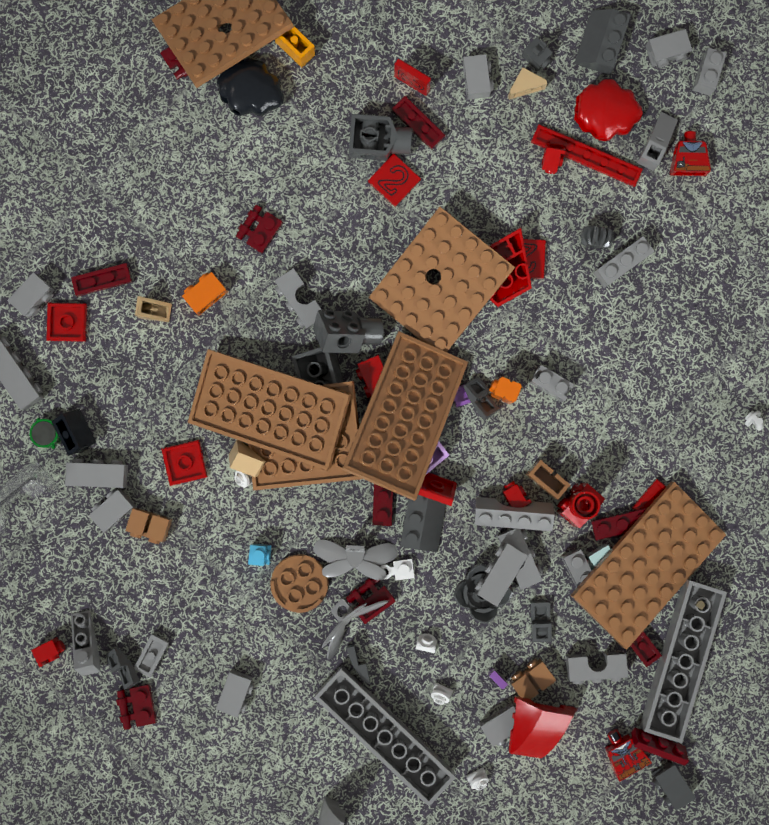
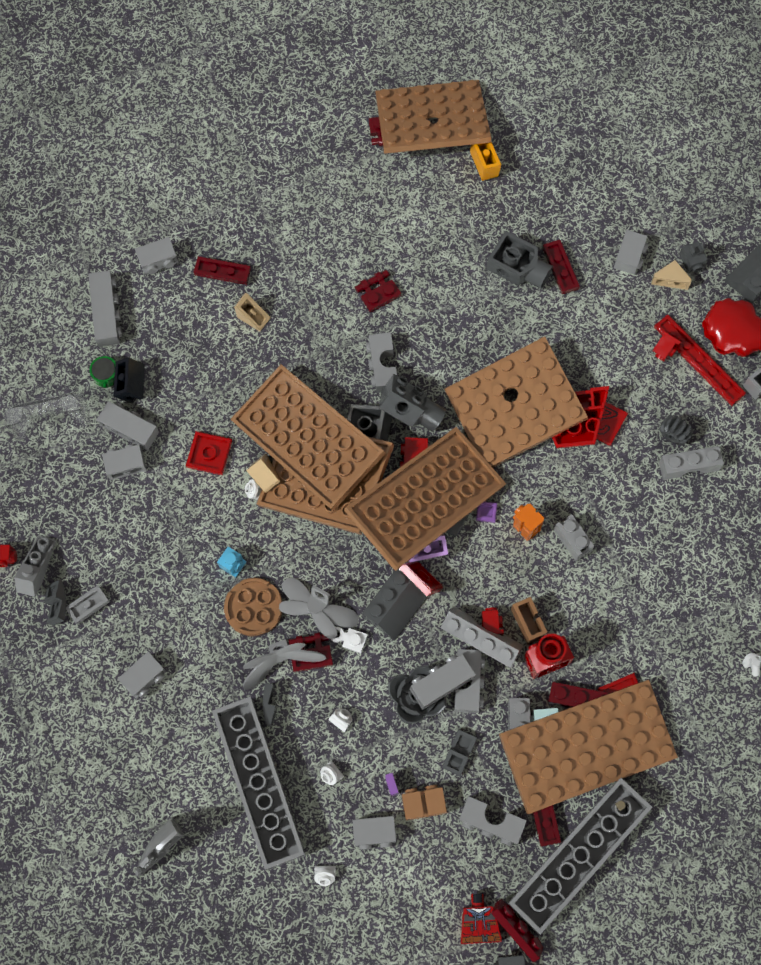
camera: 30 degrees right, 15 degrees down
(66, 322) = (173, 291): red tile -> none
(142, 705) = (54, 646): dark red plate -> none
(148, 525) = (150, 491): medium nougat piece -> none
(204, 293) = (303, 320): orange brick -> none
(250, 88) = (429, 175): black piece -> none
(382, 506) = (366, 571): dark red plate -> none
(394, 180) = (516, 304): red tile -> none
(412, 77) = (573, 225): red tile -> none
(478, 396) = (501, 521): dark grey slope -> none
(538, 727) = (406, 848): red wedge -> none

